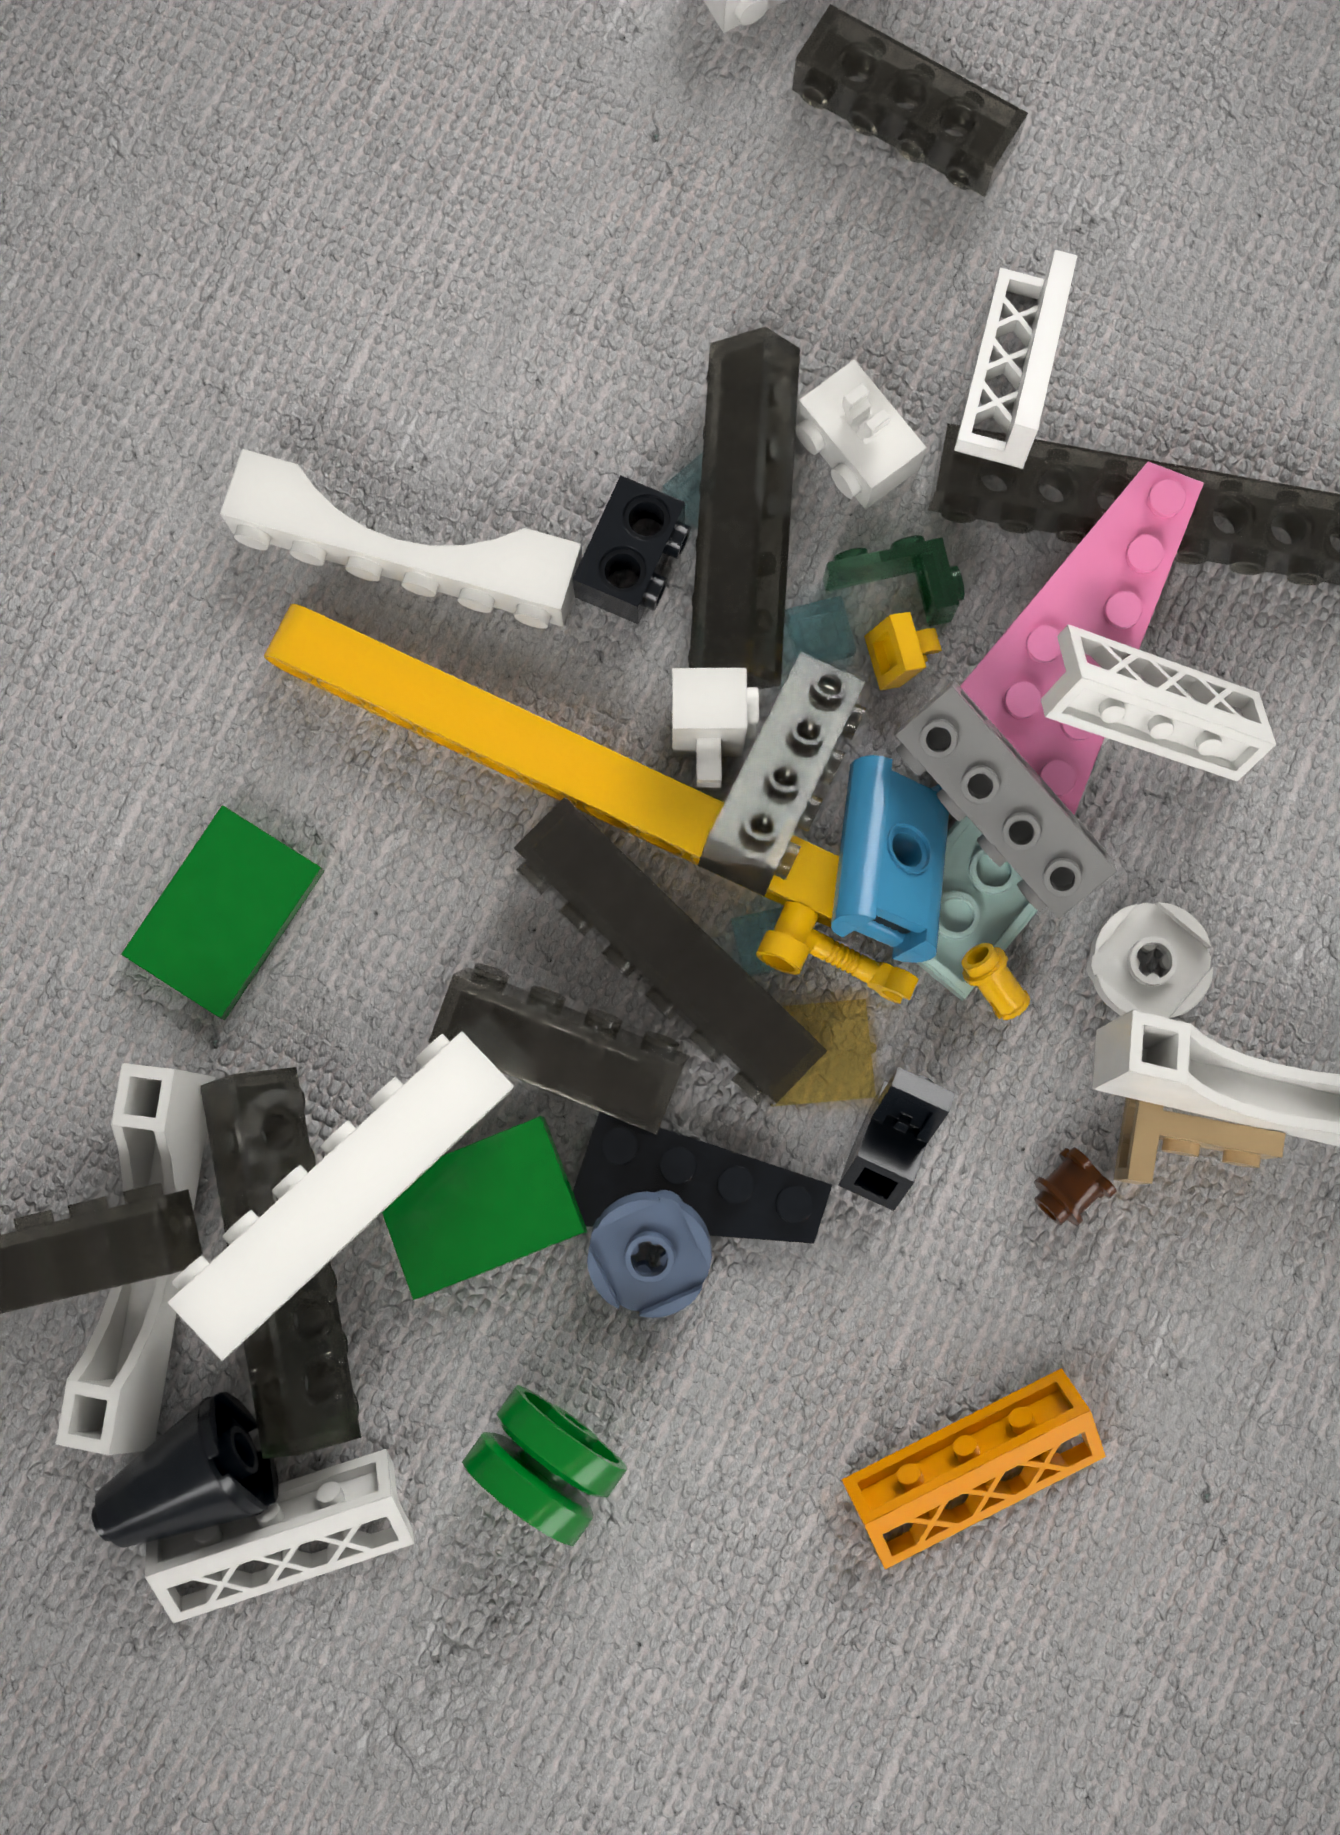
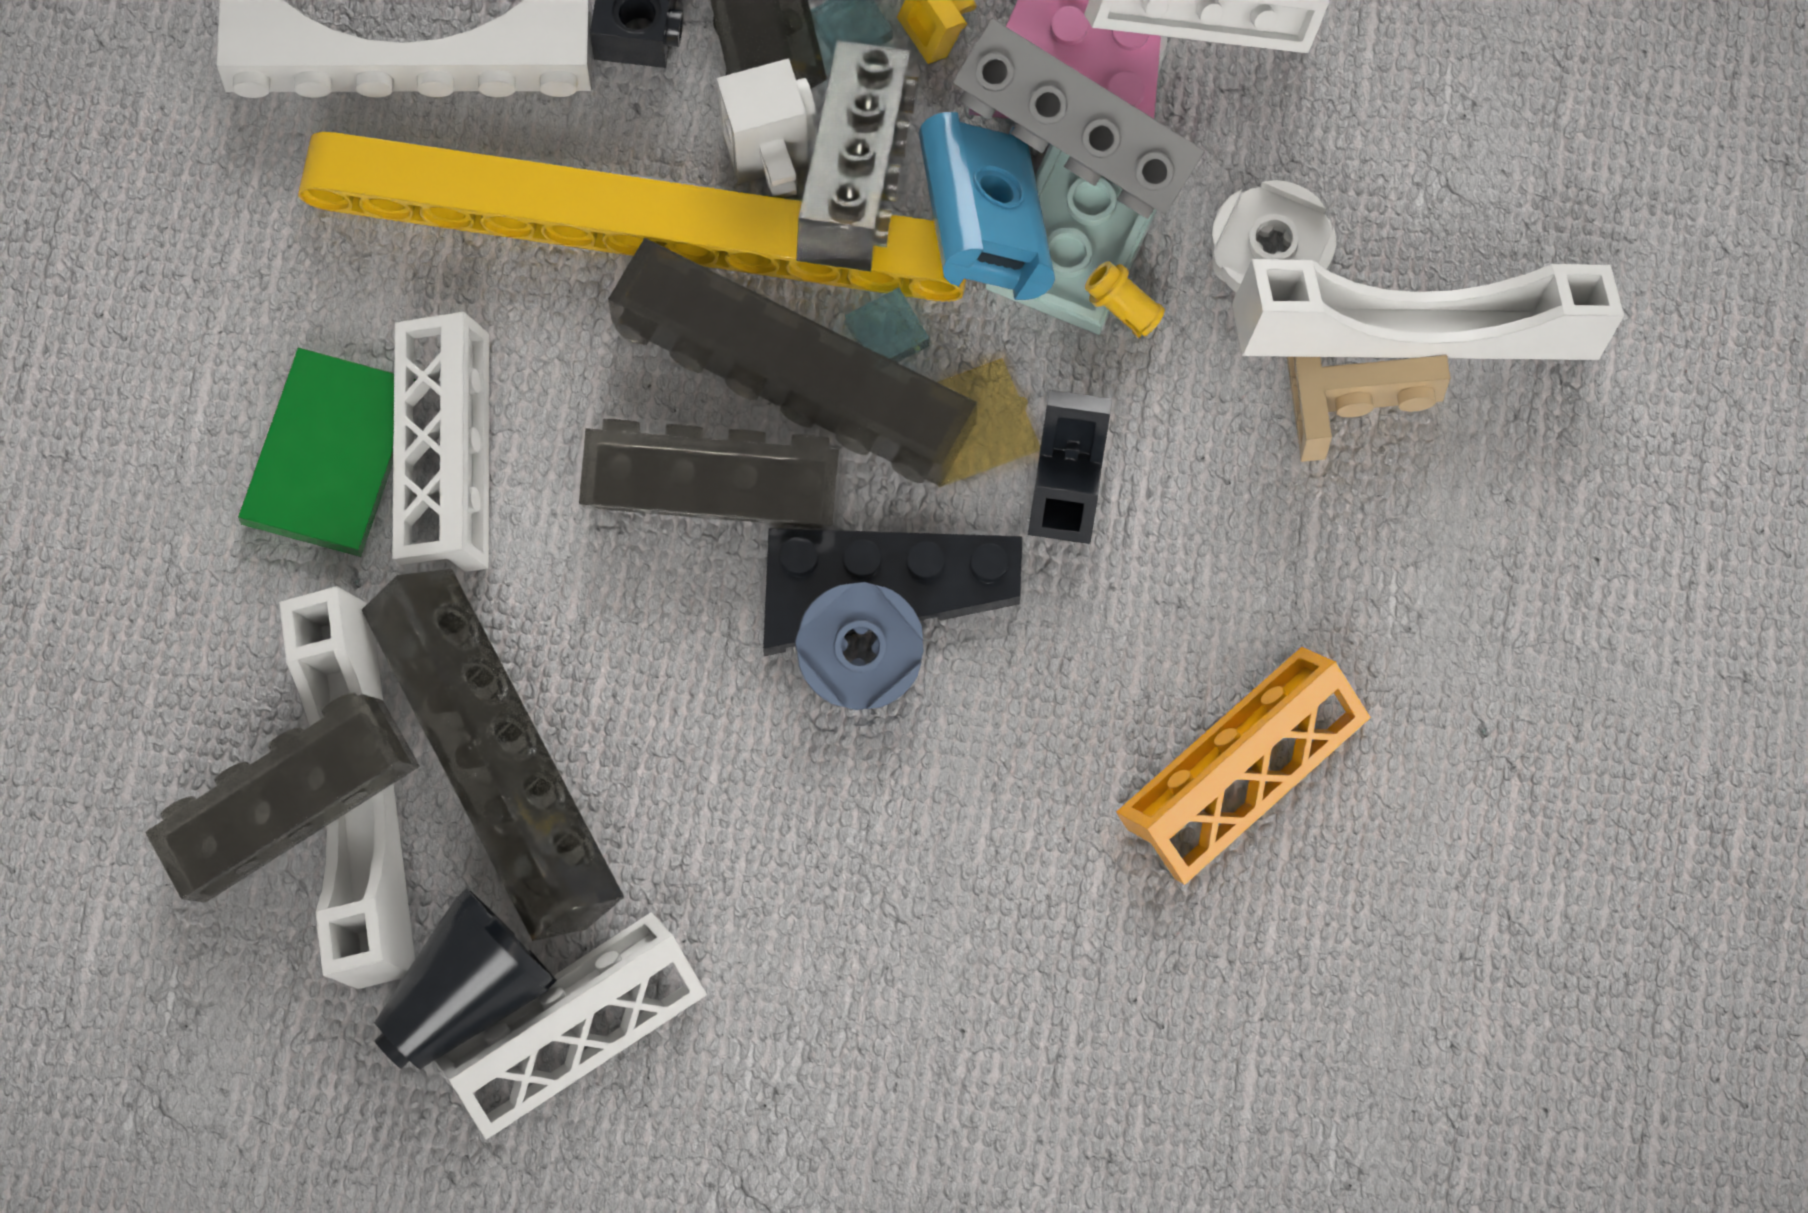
camera: 15 degrees left, 10 degrees down
(340, 1196) = (540, 648): white brick -> none
(344, 939) = (462, 447): none -> white fence
(483, 1209) = (675, 655): green tile -> none
(544, 1465) = (815, 860): green wheel -> none
(794, 938) = (911, 312): yellow brick -> none
(1071, 1188) = (1259, 471): reddish brown brick -> none

